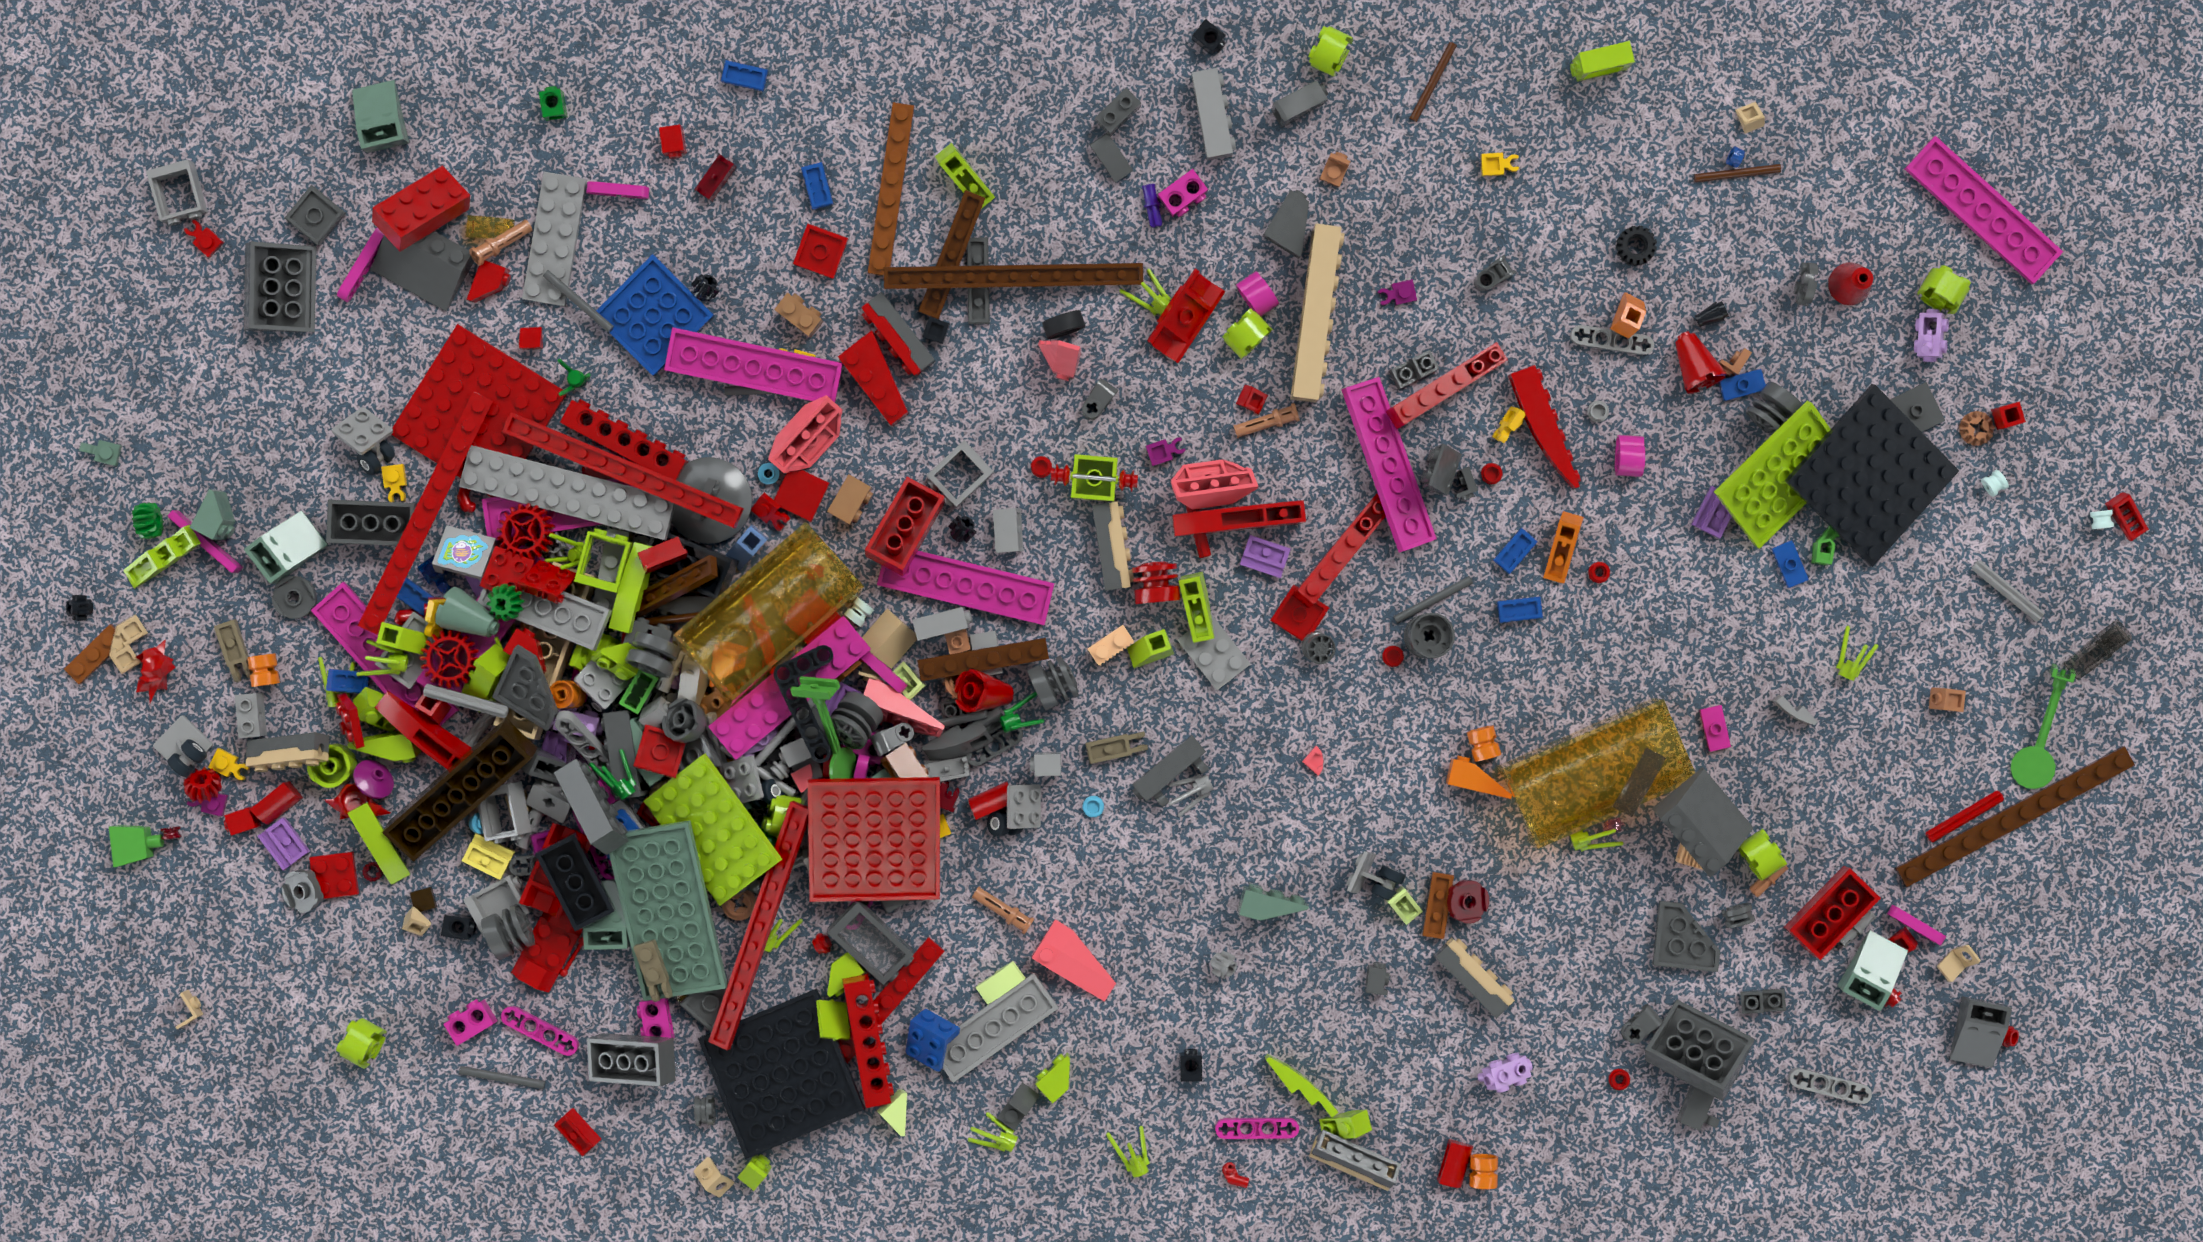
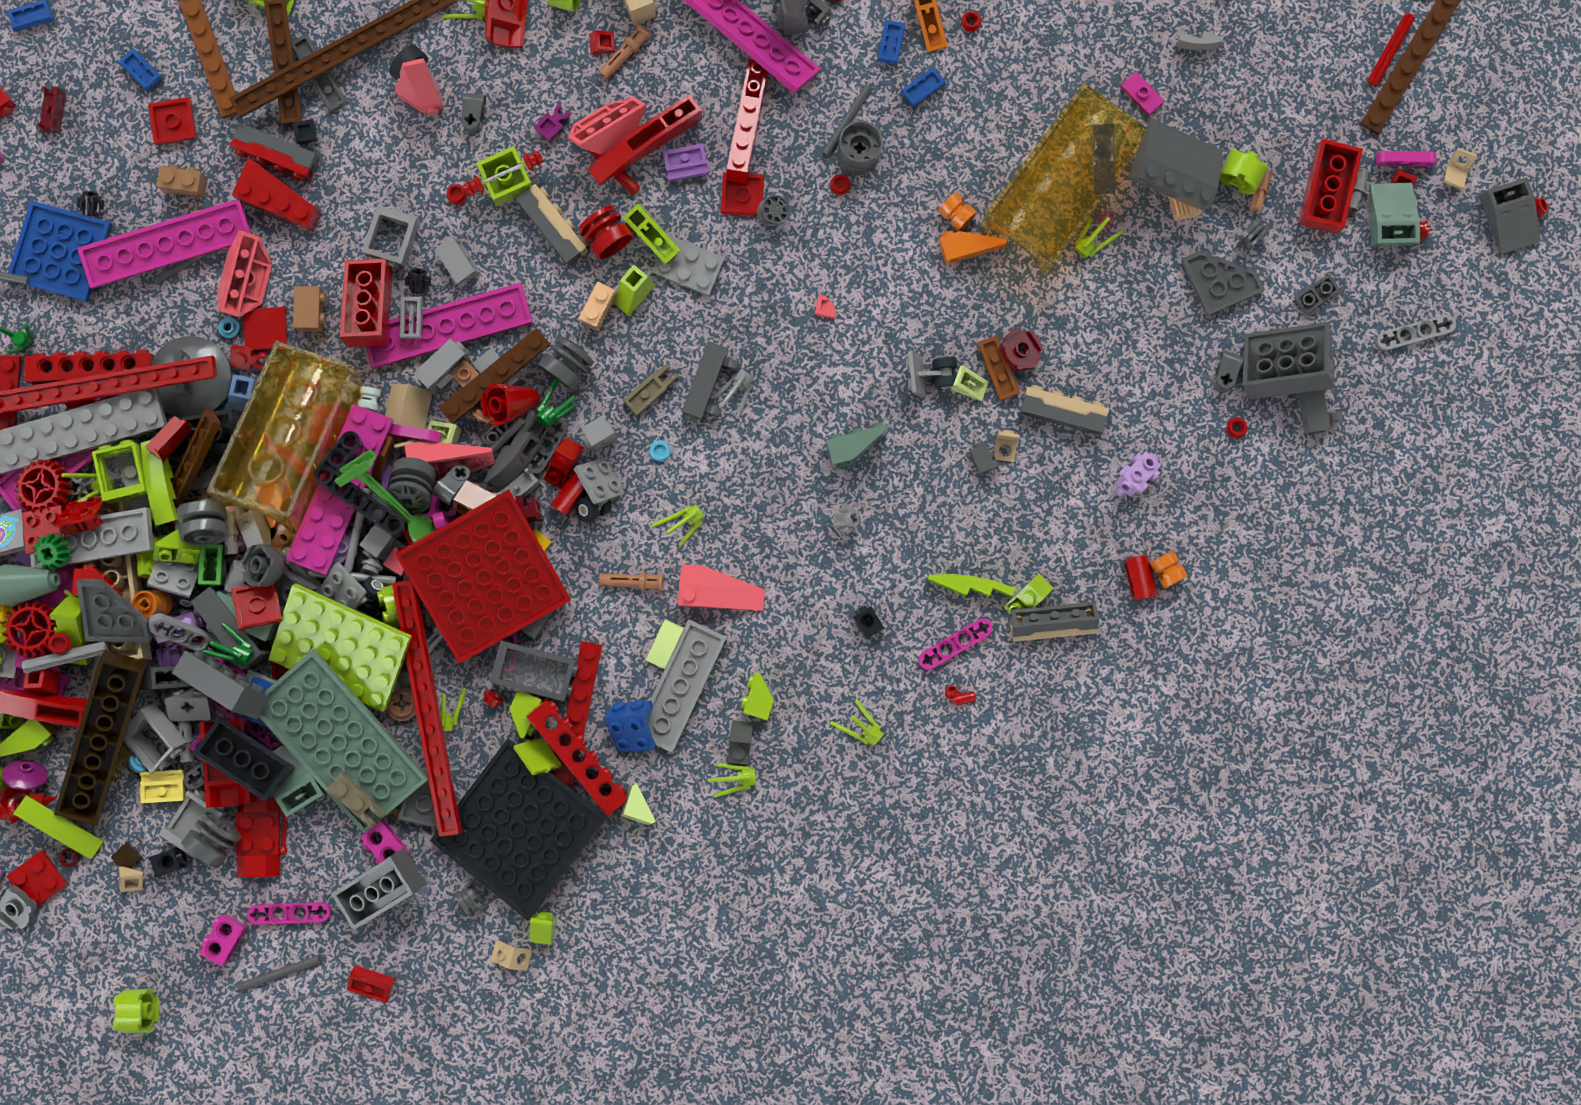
camera: 25 degrees left, 5 degrees down
(468, 687) = (59, 643): none -> red plate
(929, 577) = (411, 335): none -> light grey tile
(1001, 769) = (563, 462): none -> red slope
(1089, 883) = (692, 515): none -> lime plant
(1409, 972) = (1009, 438): none -> tan bracket

